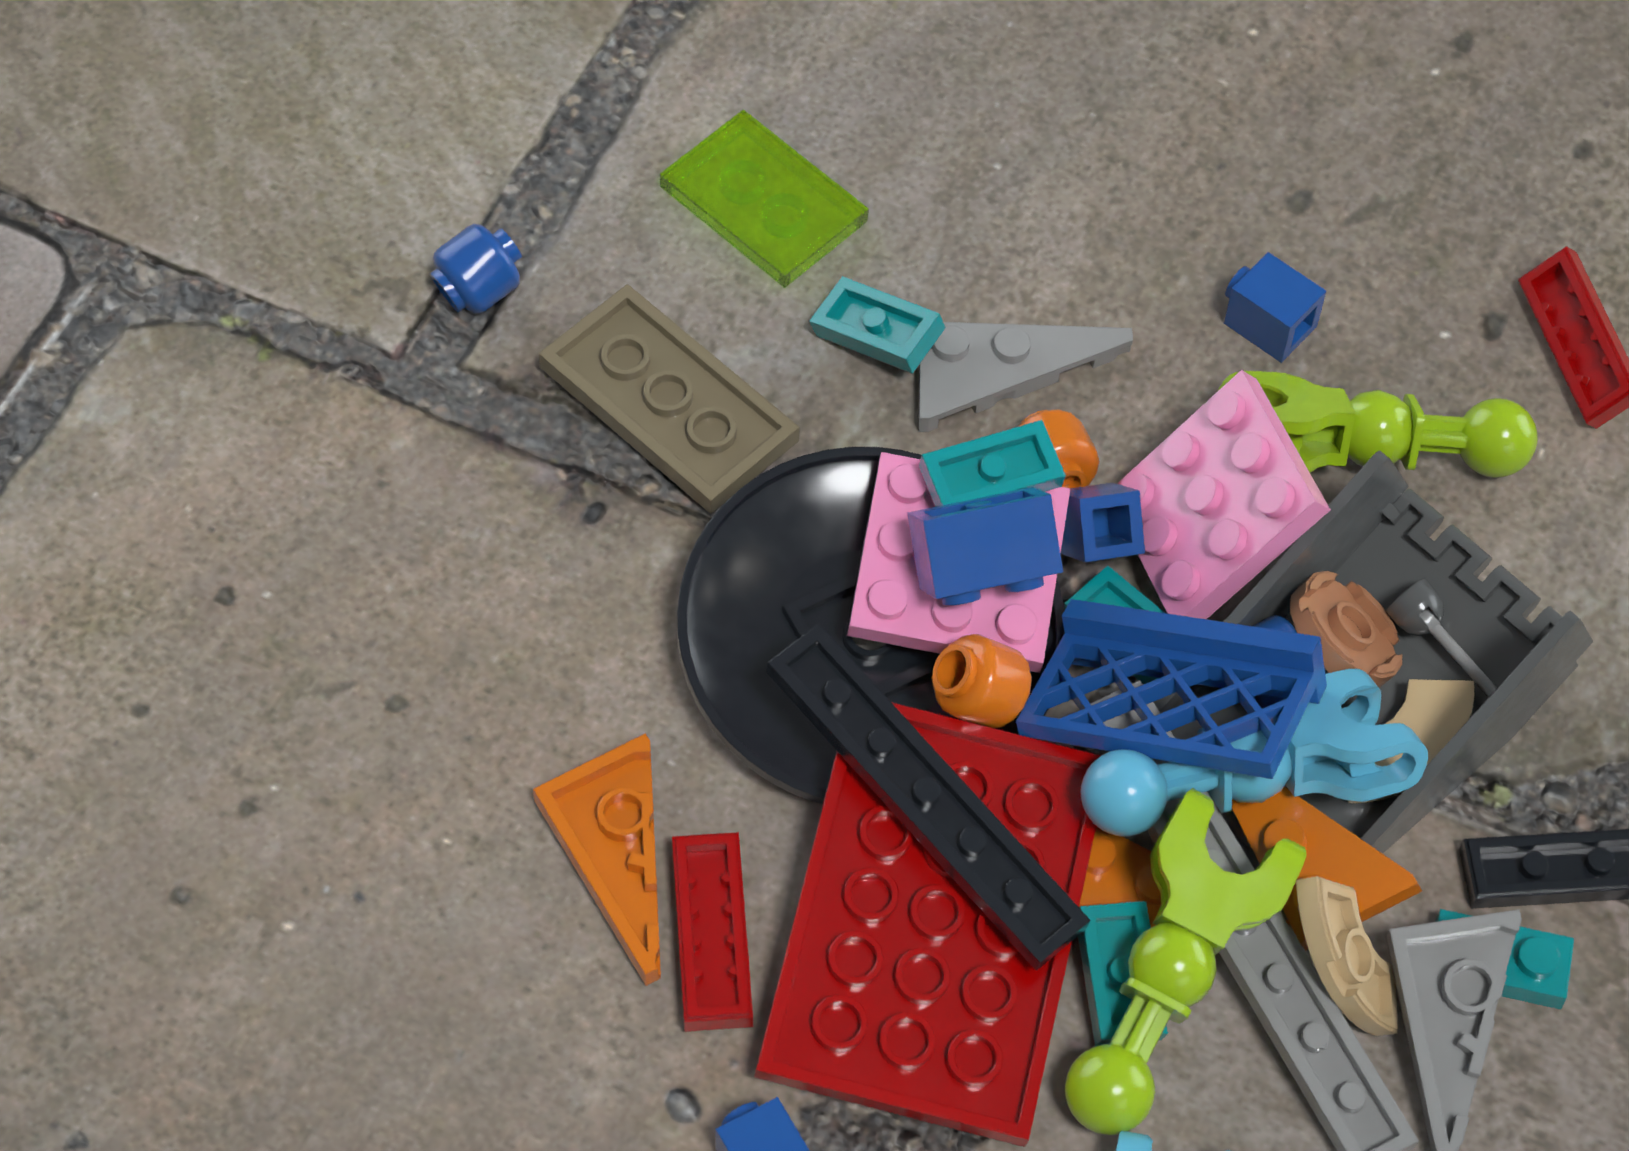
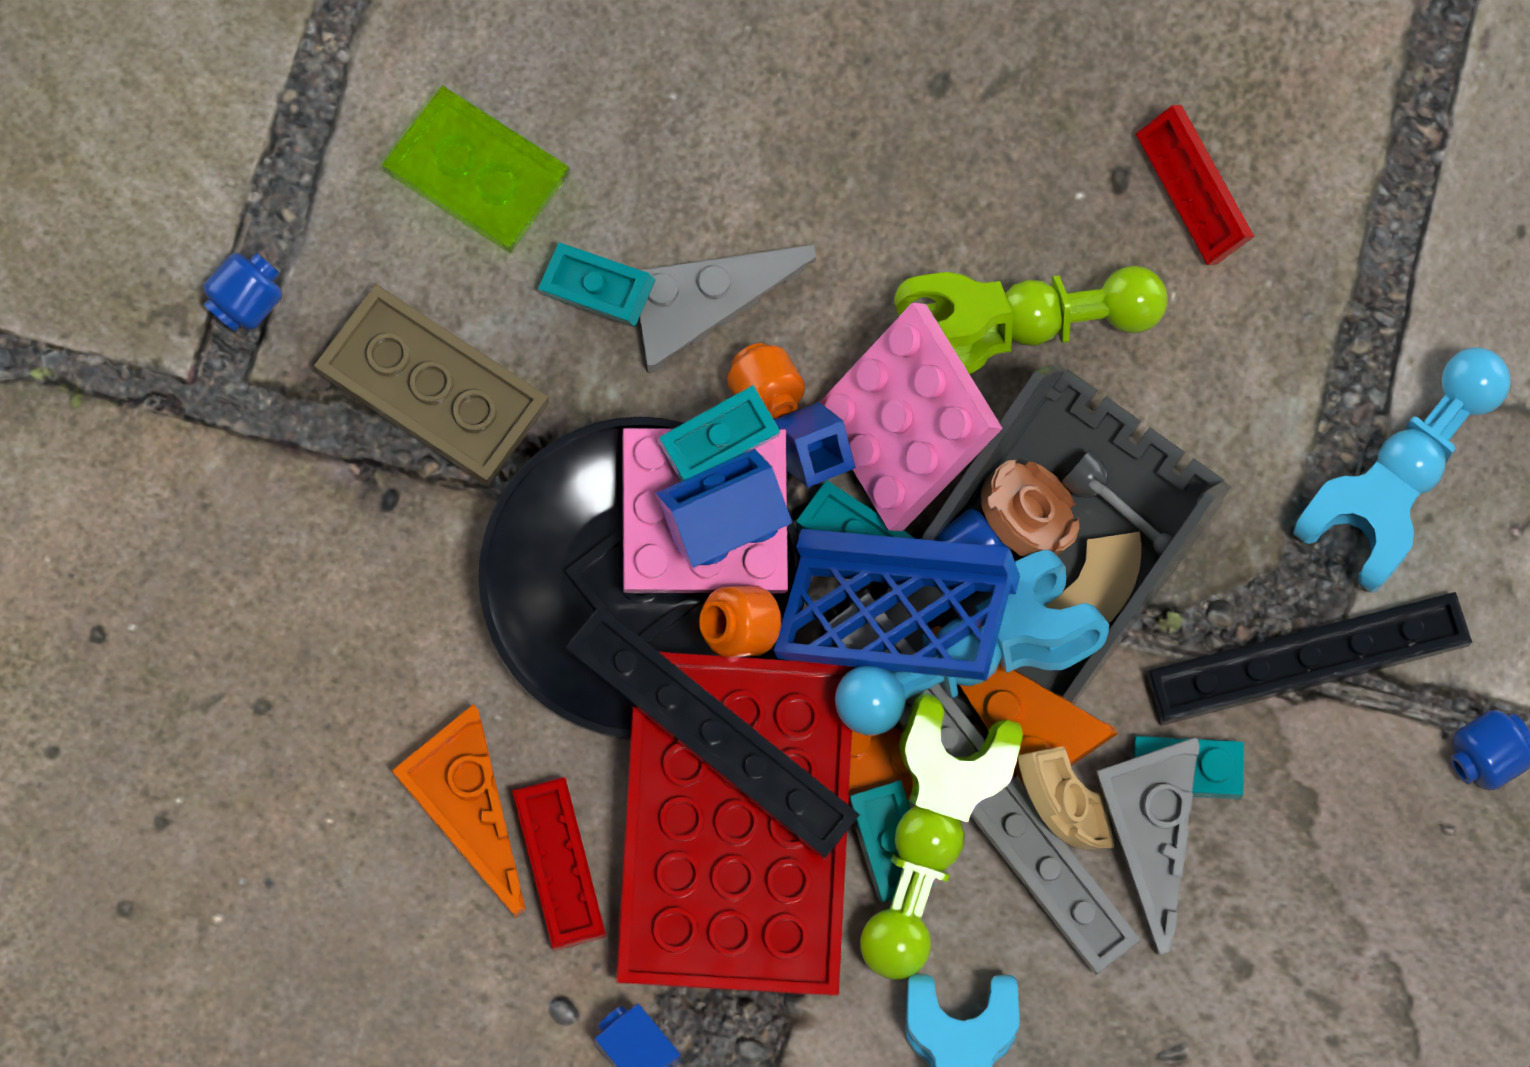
camera: 10 degrees left, 15 degrees up
(1273, 306) = (930, 202): blue brick -> none

